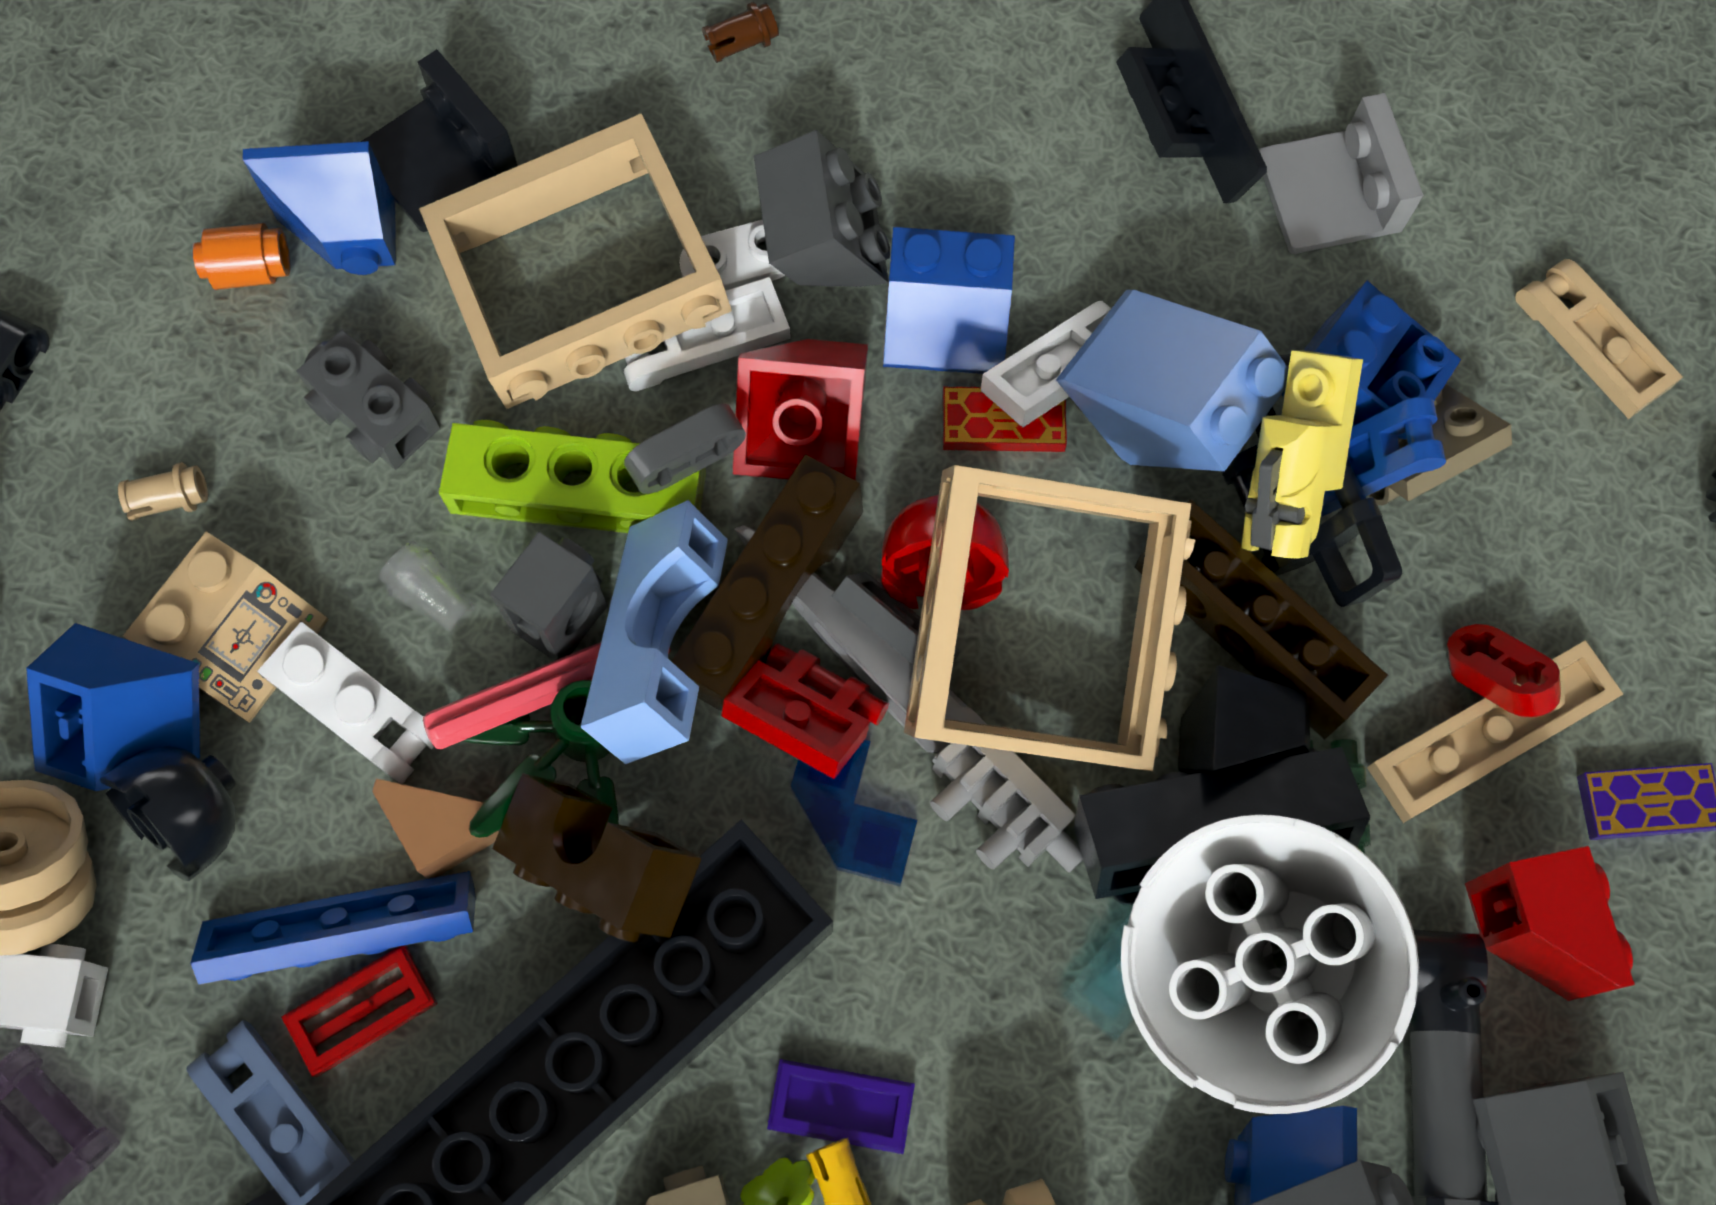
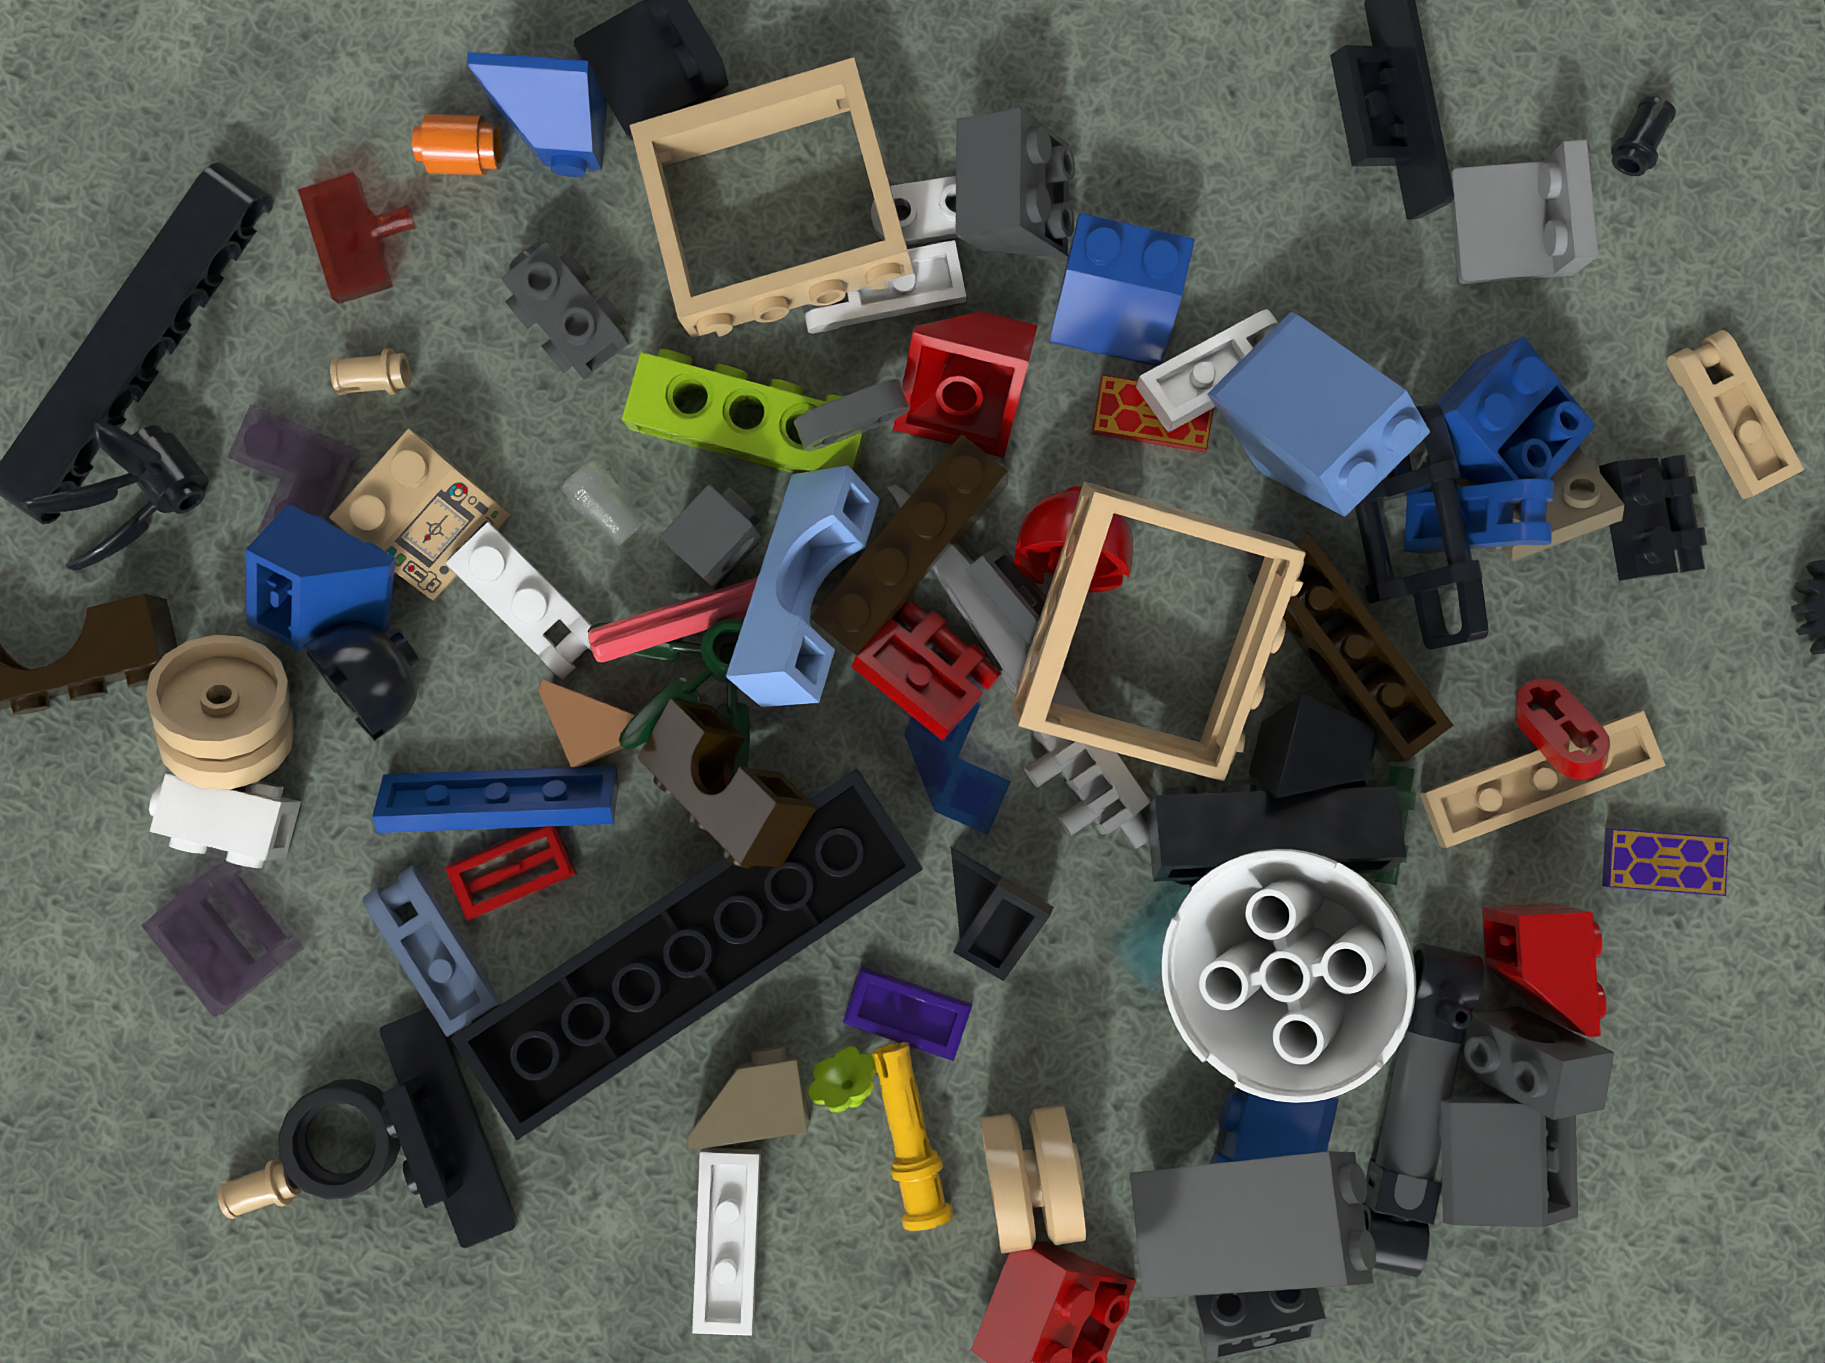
camera: 10 degrees right, 15 degrees up
(82, 588) = (307, 463): none -> clear purple plate
(134, 359) = (351, 236): none -> clear red plate
(923, 973) = (994, 916): none -> black slope
(1301, 454) = (1420, 511): light yellow plate -> none
(1438, 98) = (1638, 147): none -> black pin
(1548, 450) = (1644, 537): none -> black plate
(1571, 1036) = (1537, 1062): none -> dark grey brick

